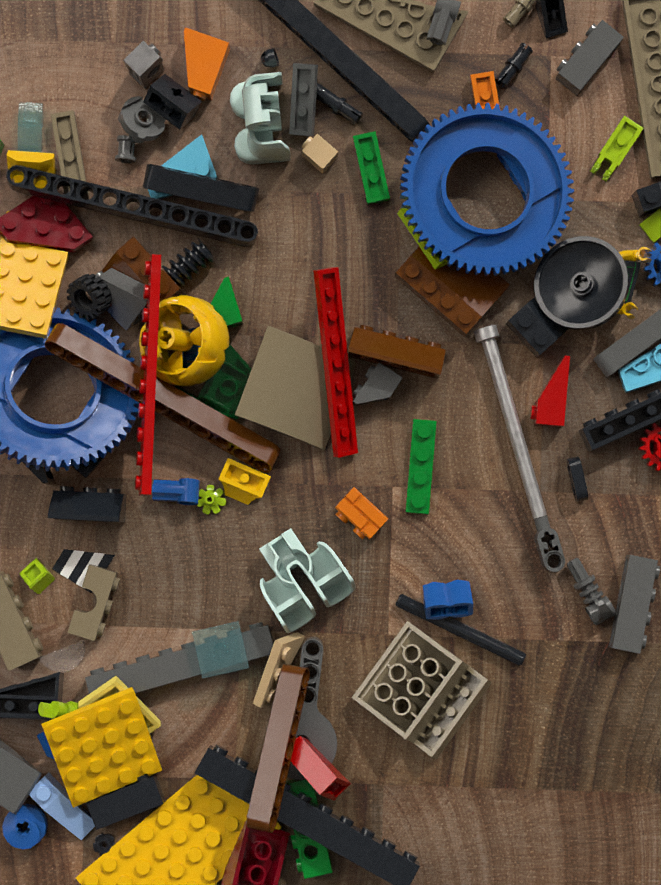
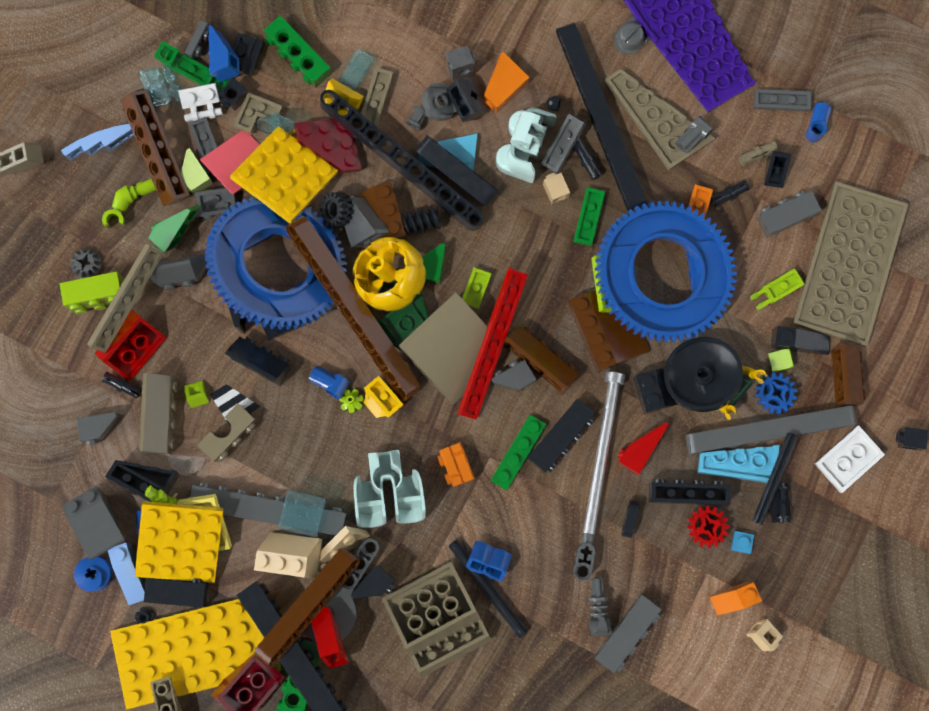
camera: 25 degrees right, 5 degrees down
(149, 364) = (345, 291): red plate -> none
(229, 701) = (289, 555): none -> tan slope
(286, 308) = (476, 288): none -> lime plate
(338, 686) = (375, 584): none -> black slope
(459, 425) = (560, 436): none -> black brick

